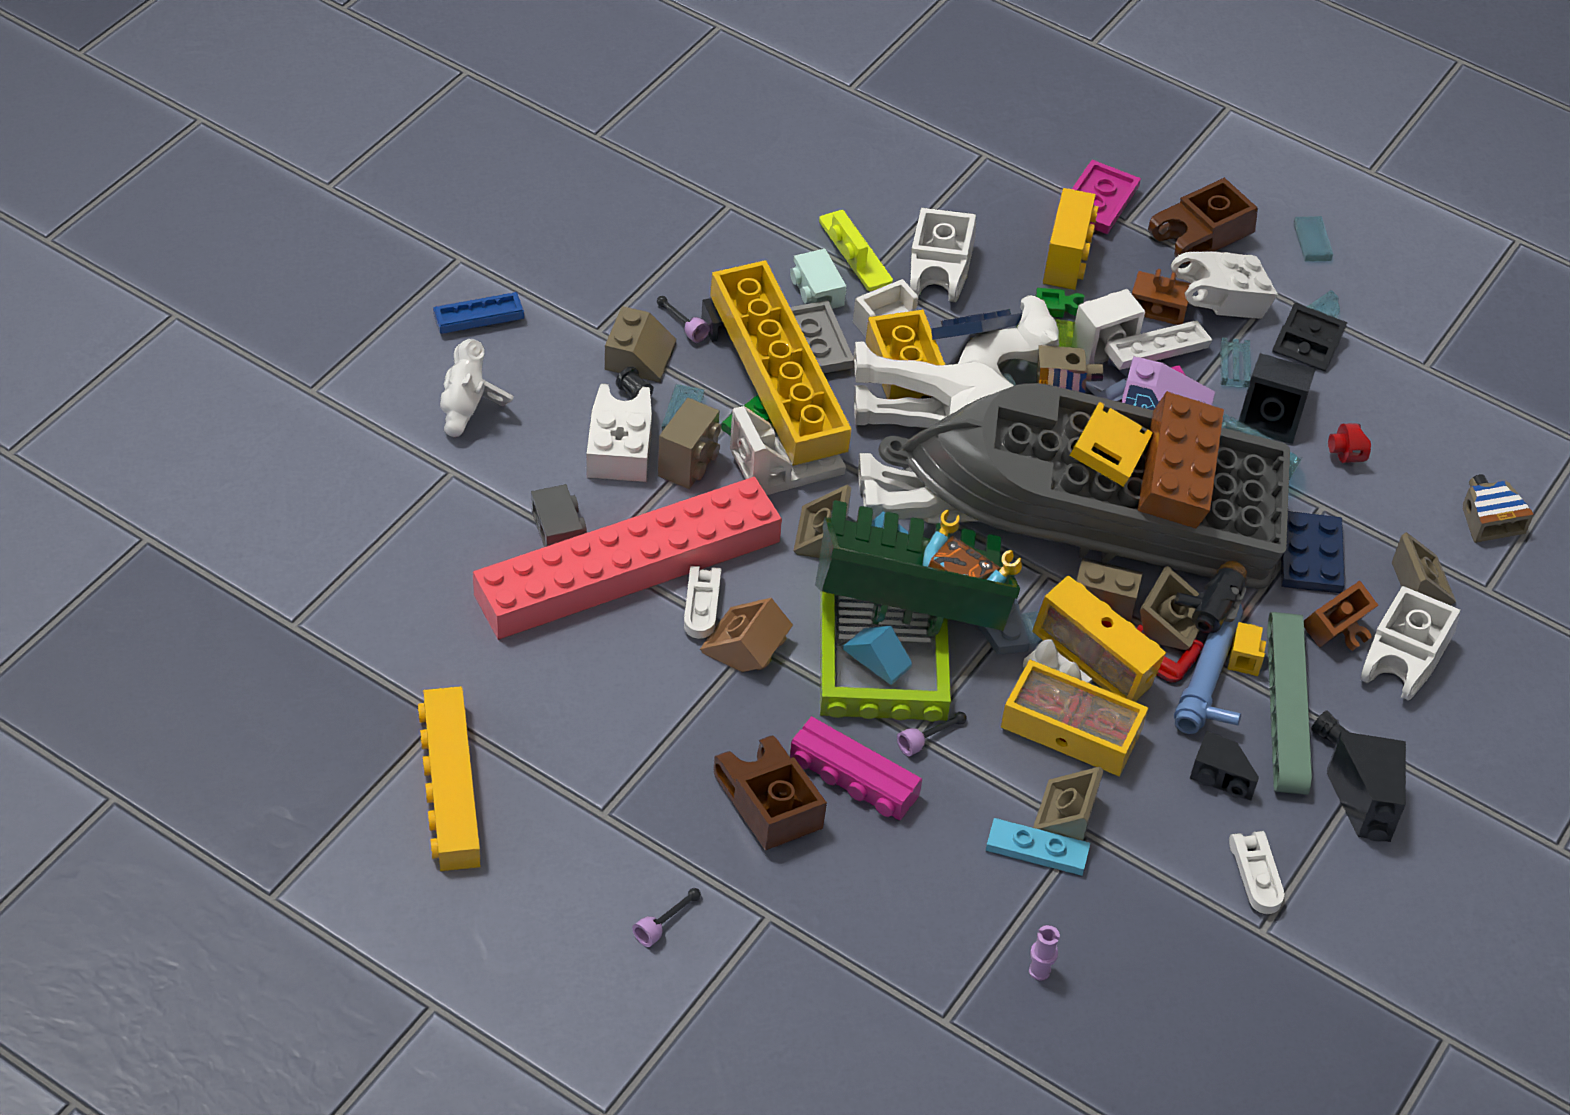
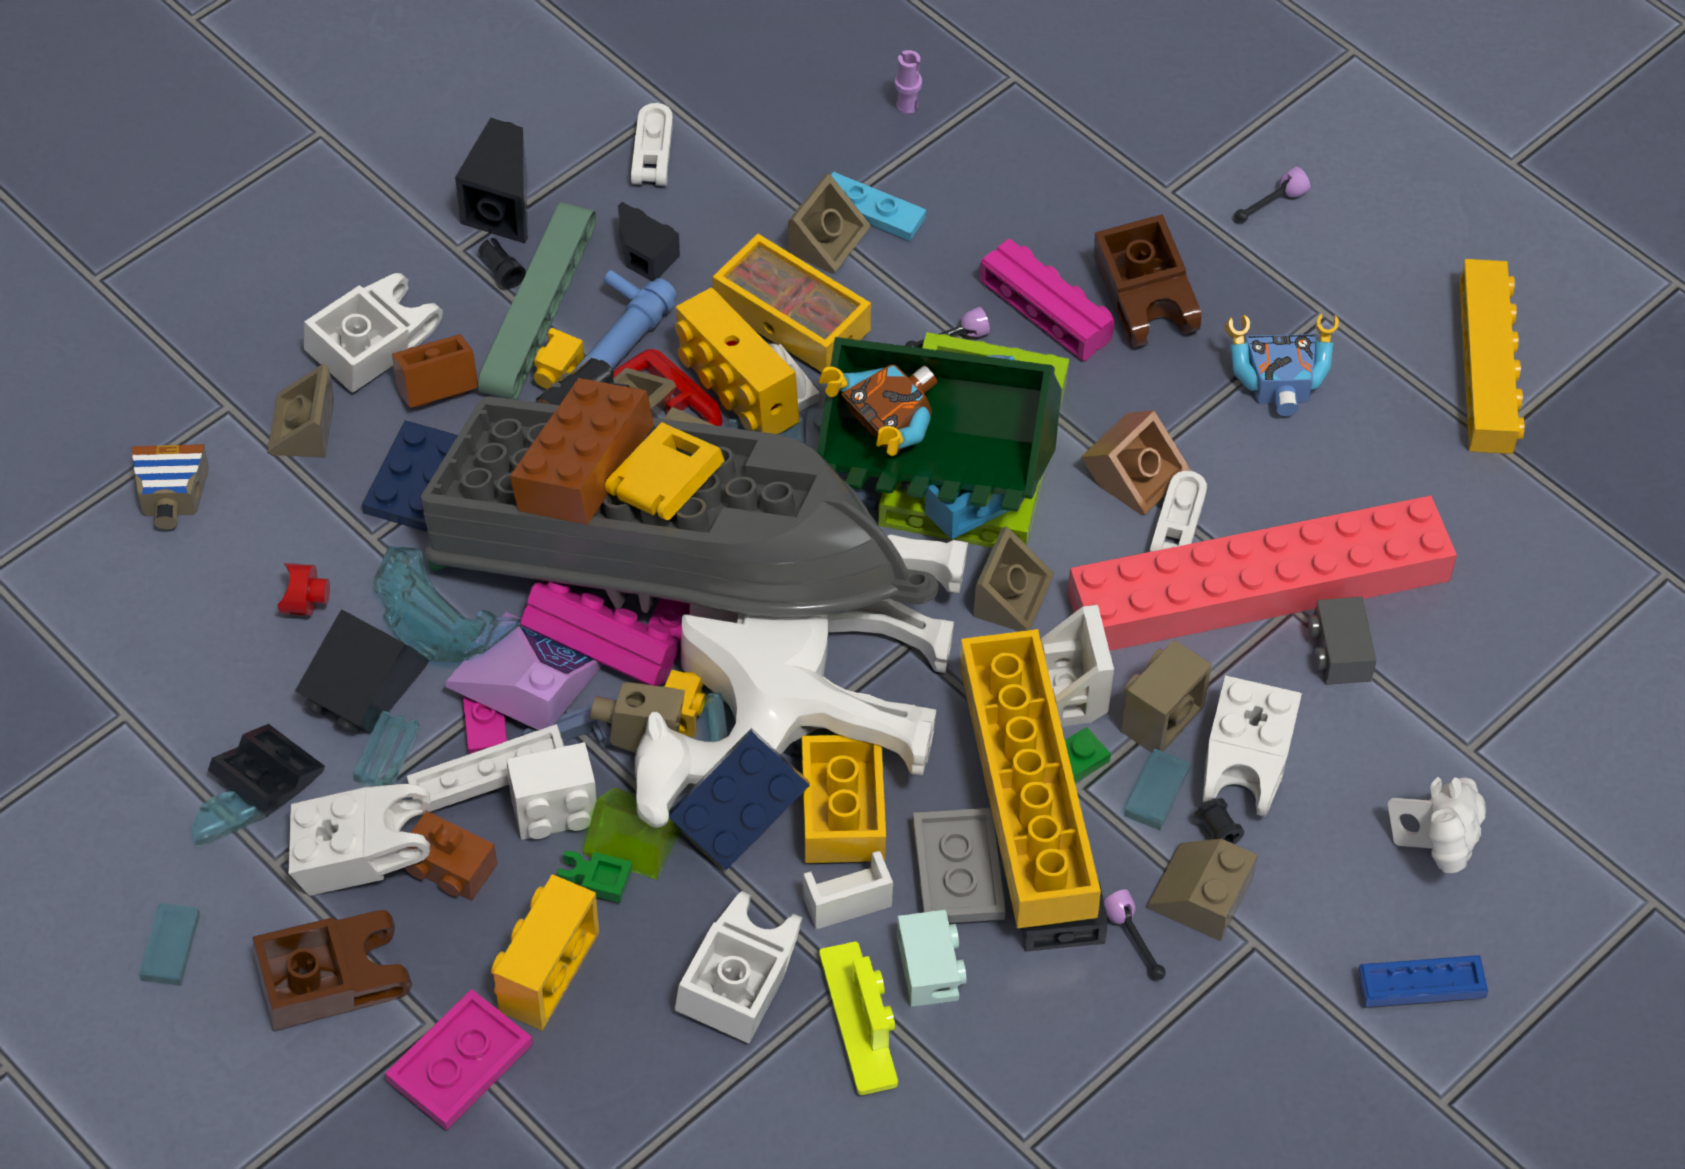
camera: 165 degrees left, 5 degrees up
(637, 735) = (1281, 366): none -> torso

